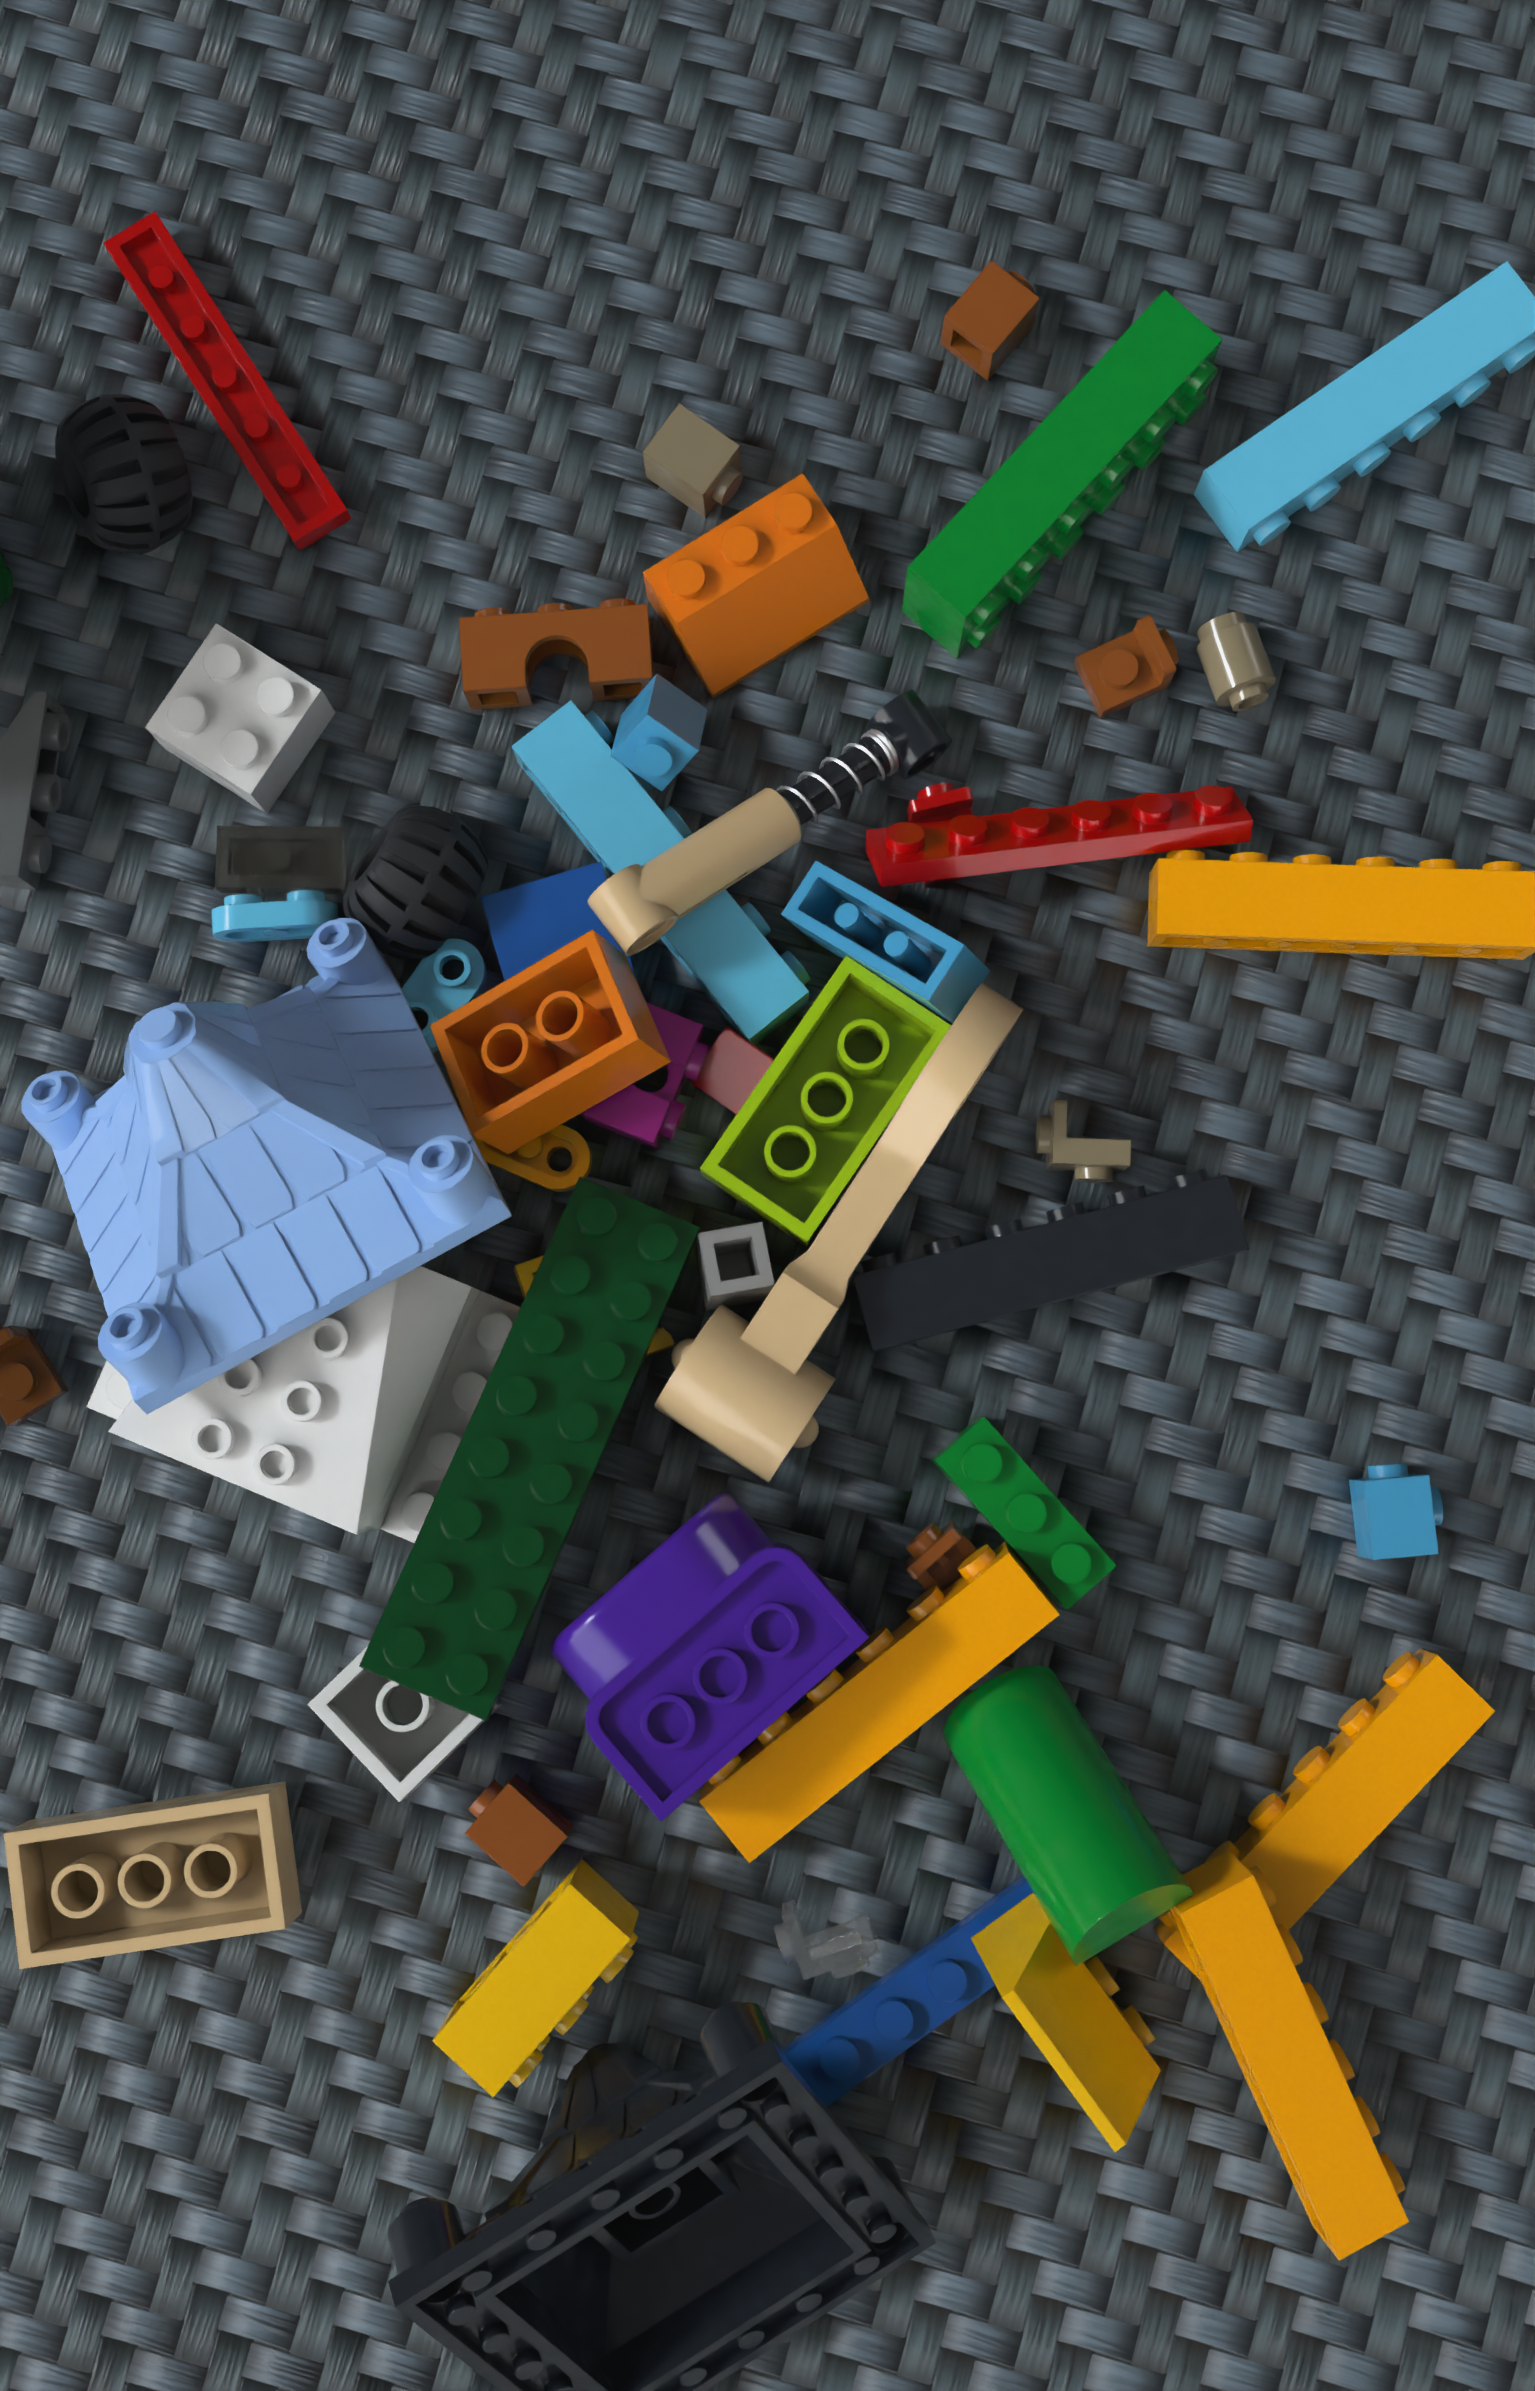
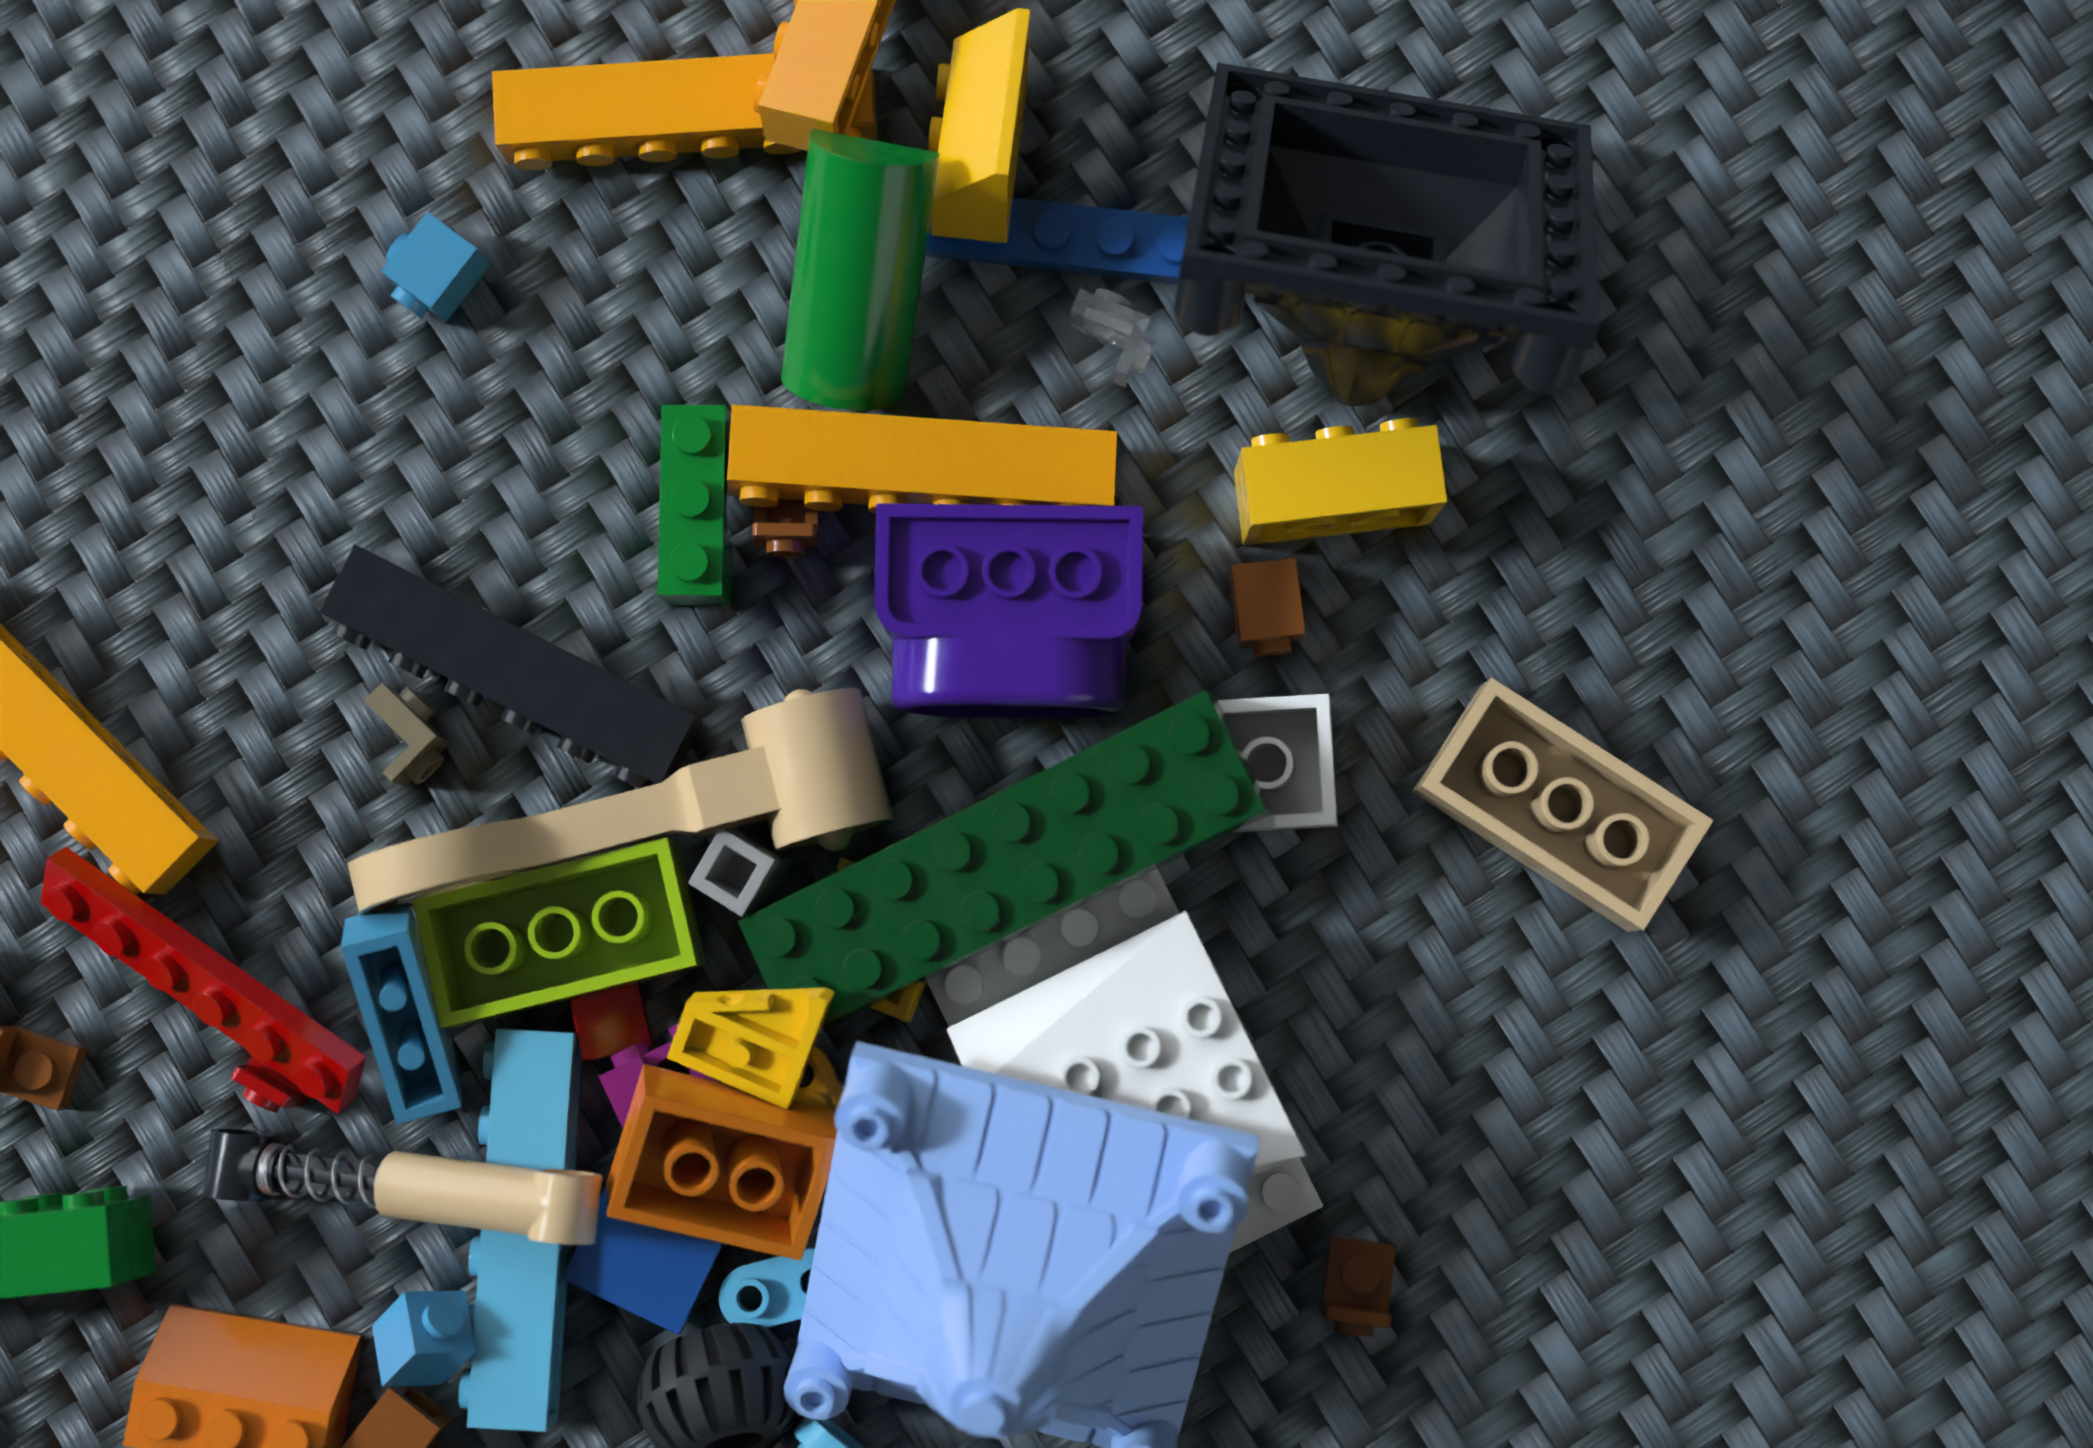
camera: 140 degrees left, 0 degrees up
(607, 1152) = (752, 1038): none -> yellow wing

